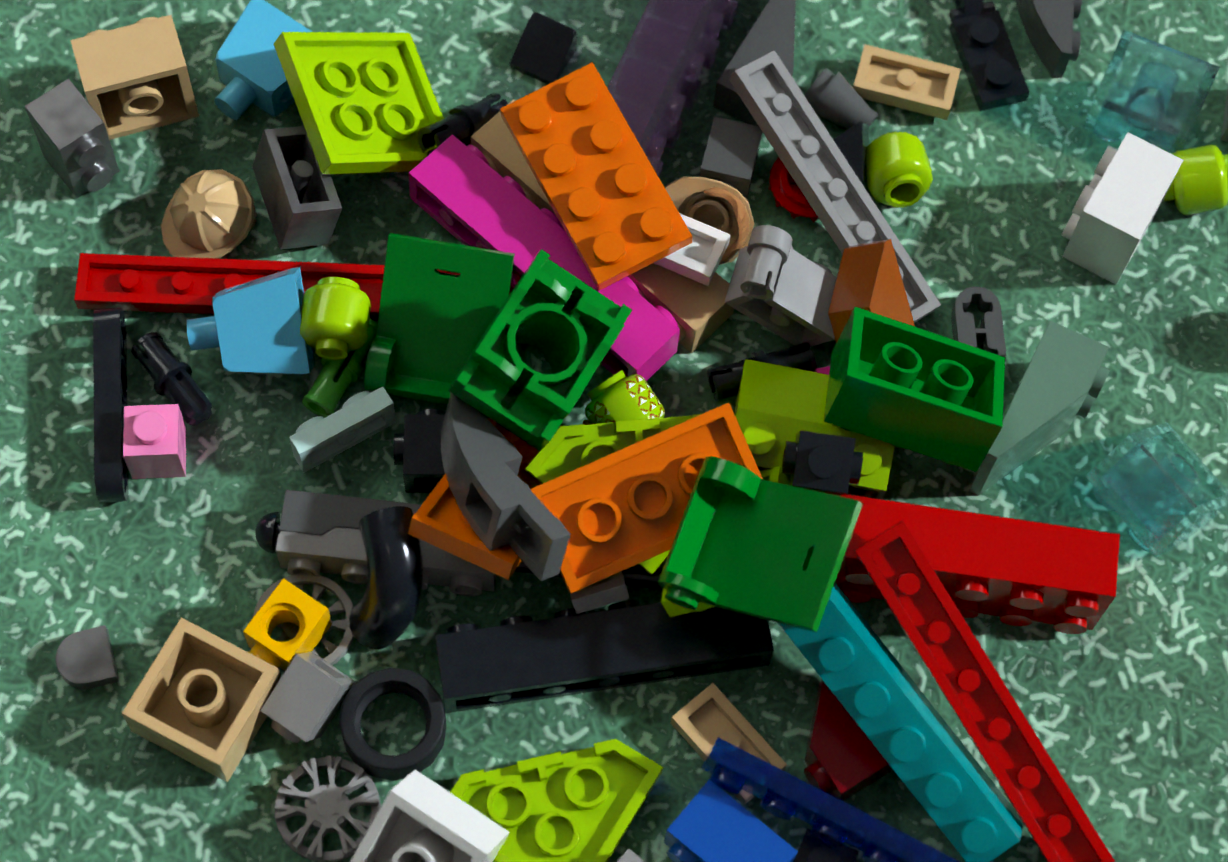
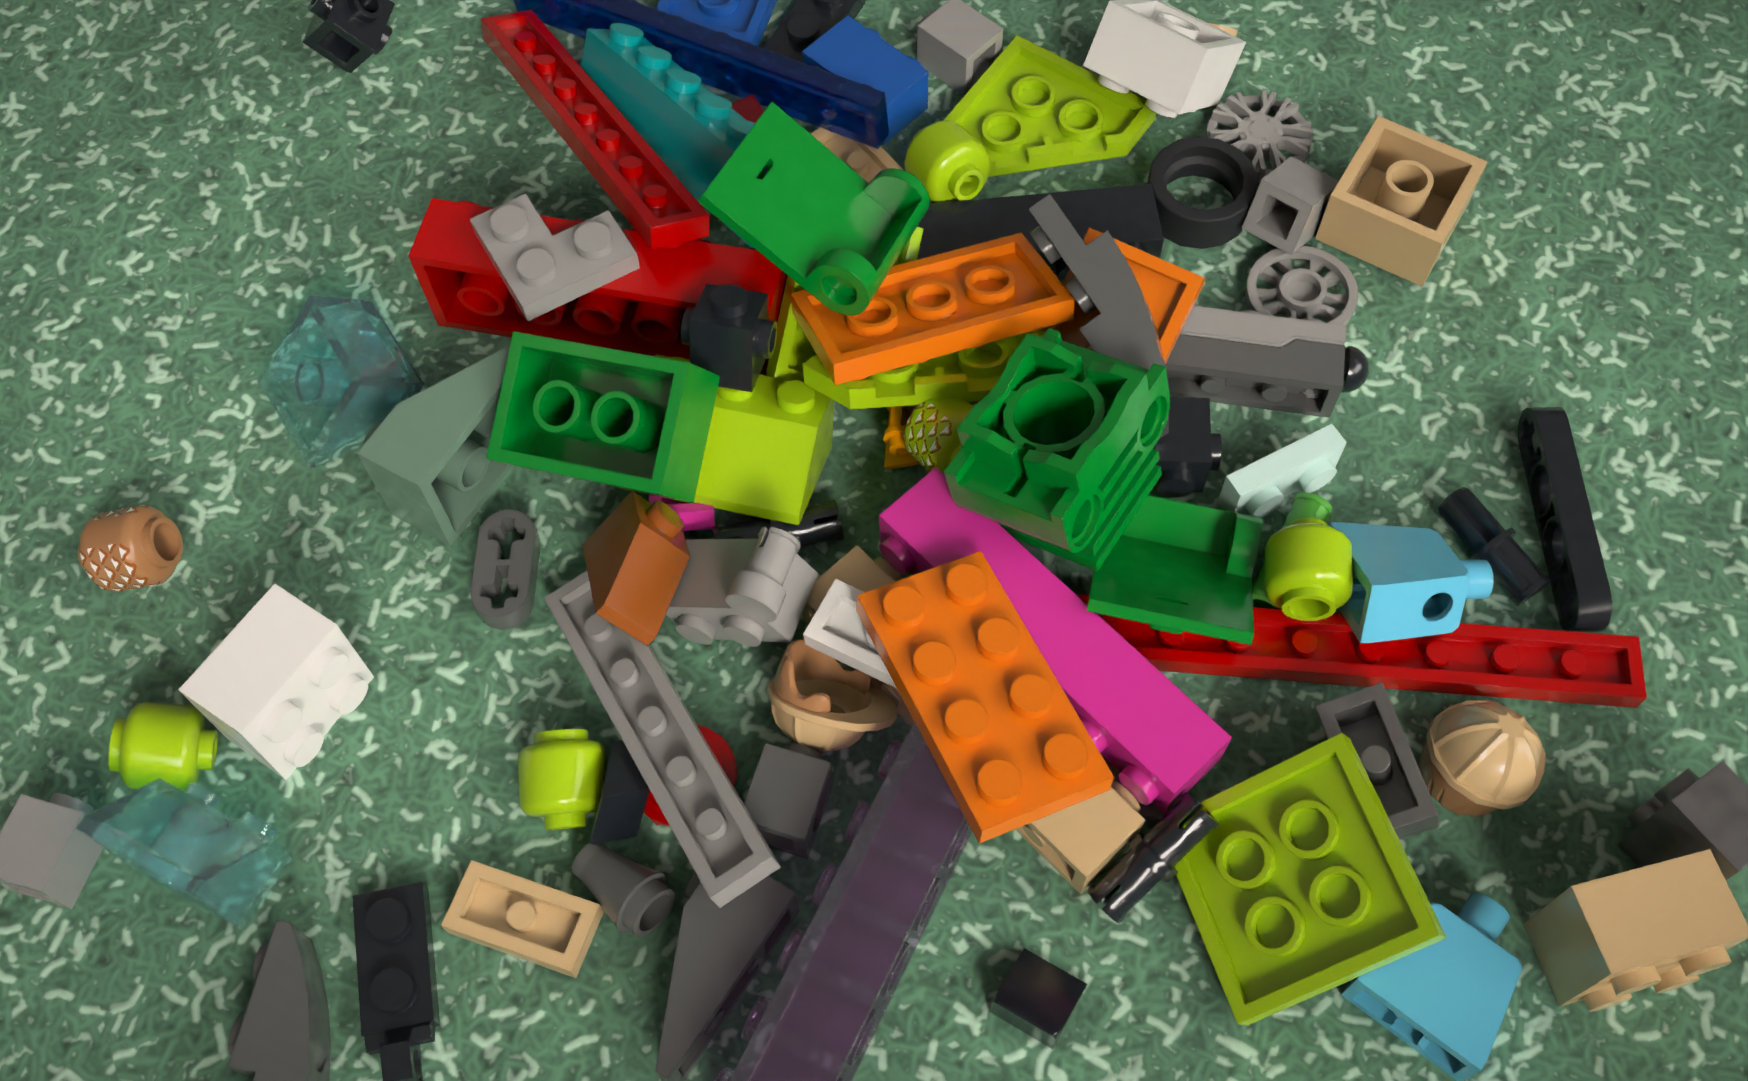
camera: 170 degrees left, 5 degrees down
(87, 659) = (1526, 269): flat silver tile -> none
(154, 441) = (1504, 460): bright pink brick -> none
(287, 605) = (1322, 254): yellow brick -> none
(392, 578) = (1227, 298): black cylinder -> none
(641, 711) = (948, 162): none -> lime head
(995, 514) = (551, 269): none -> light grey plate

